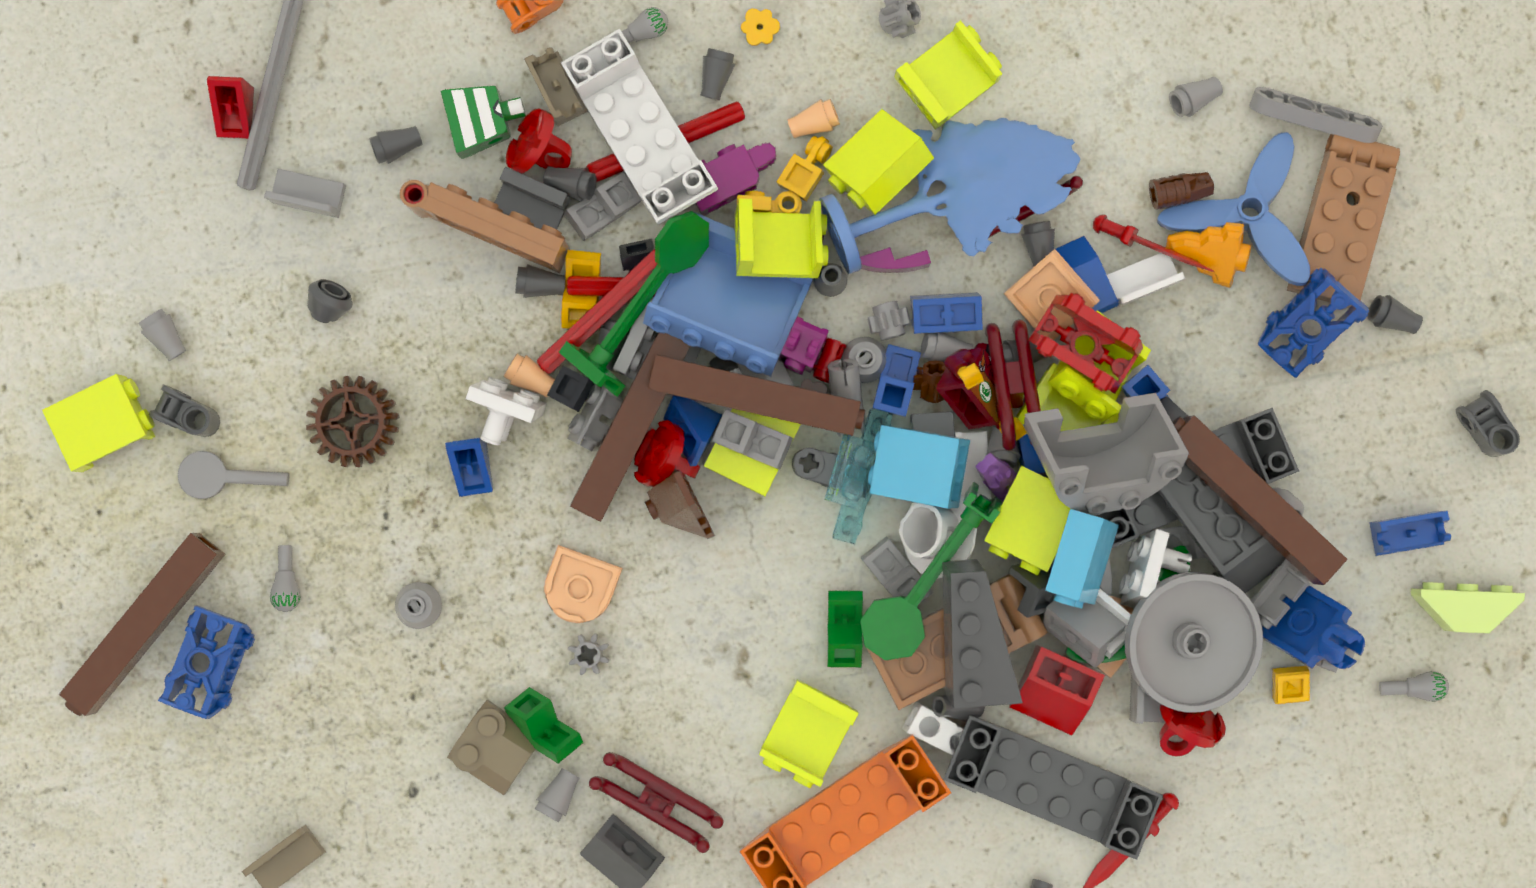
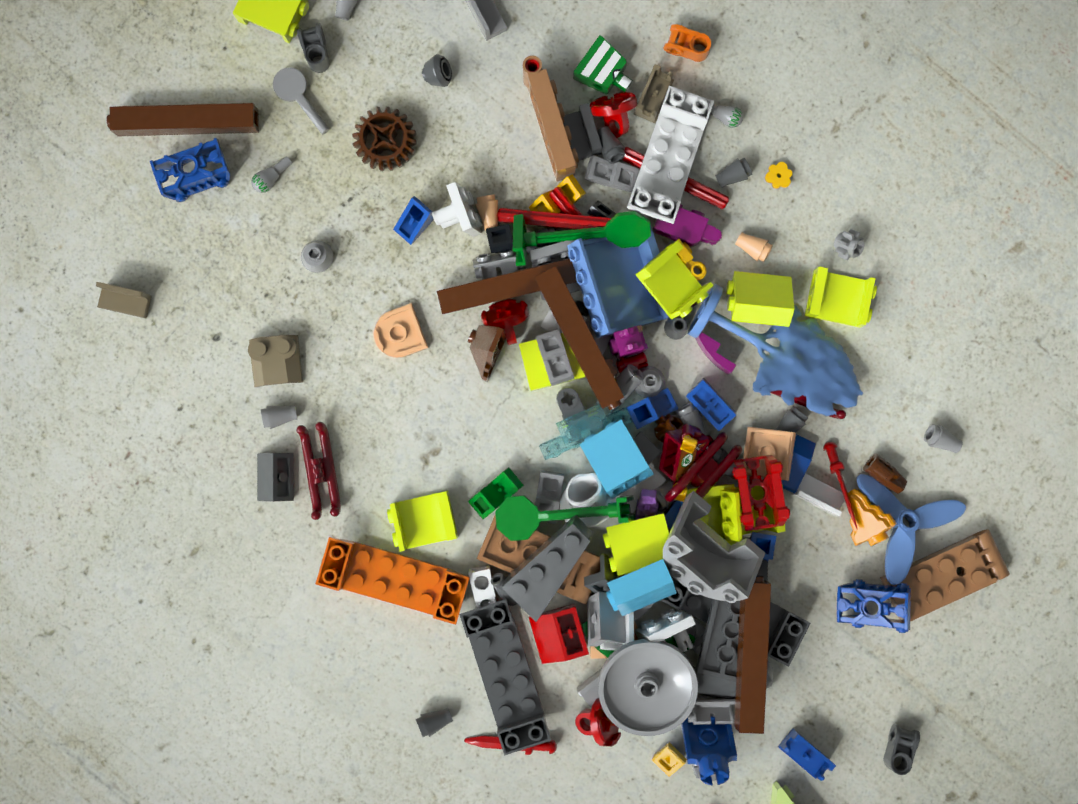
camera: 45 degrees right, 0 degrees up
(394, 143) = (551, 36): dark grey cone -> none
(538, 282) = (542, 174): dark grey cone -> none
(540, 725) = (307, 375): green slope -> none
(586, 663) = (364, 361): light grey gear -> none
(697, 424) = (537, 322): blue slope -> none
(801, 174) = (719, 264): yellow plate -> none
(888, 320) = (680, 377): light grey gear -> none
(1315, 115) = (988, 513): light grey beam -> none
(1391, 314) = (916, 646): dark grey cone -> none

